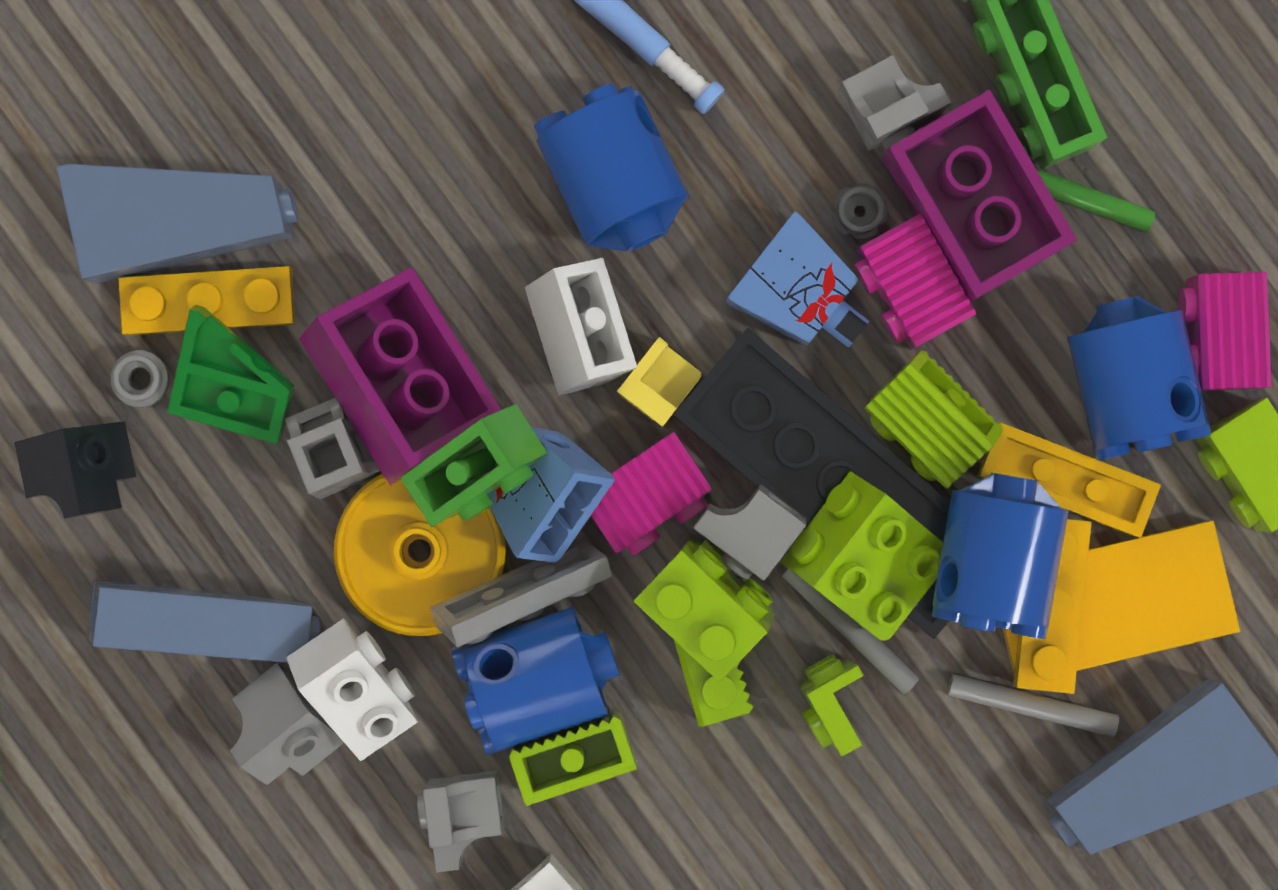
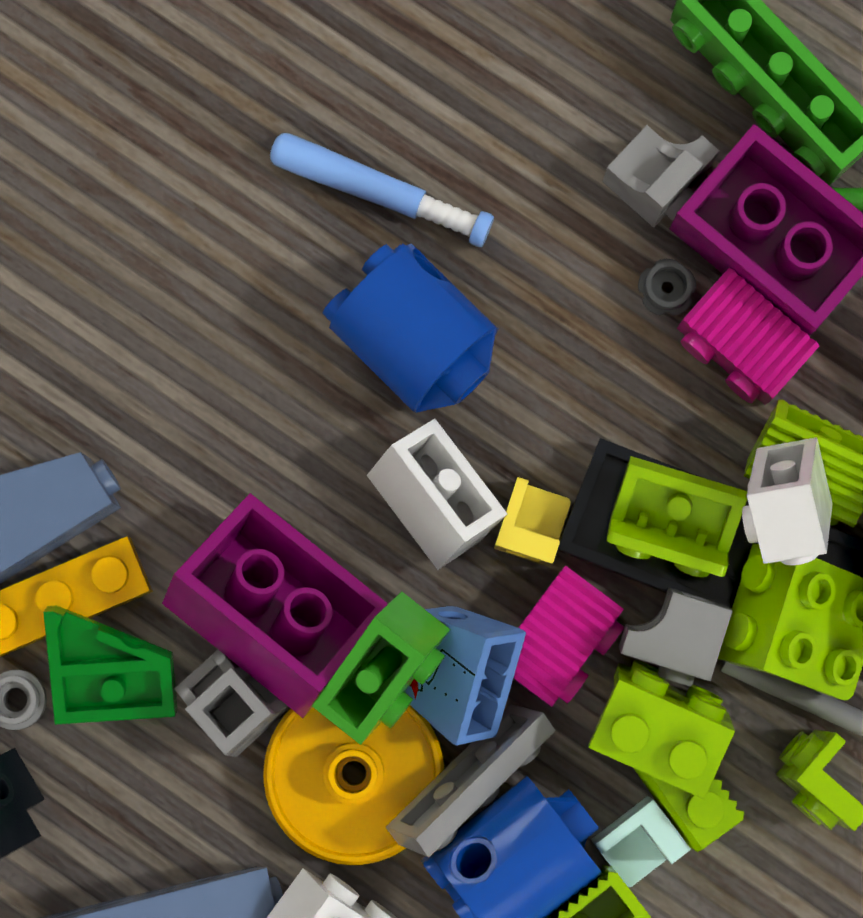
camera: 10 degrees left, 5 degrees down
(653, 701) = (640, 842): none -> light aqua panel
(787, 424) = (675, 518): none -> lime bracket
(799, 287) = (637, 381): medium blue torso -> none
(891, 446) = (788, 503): none -> white brick

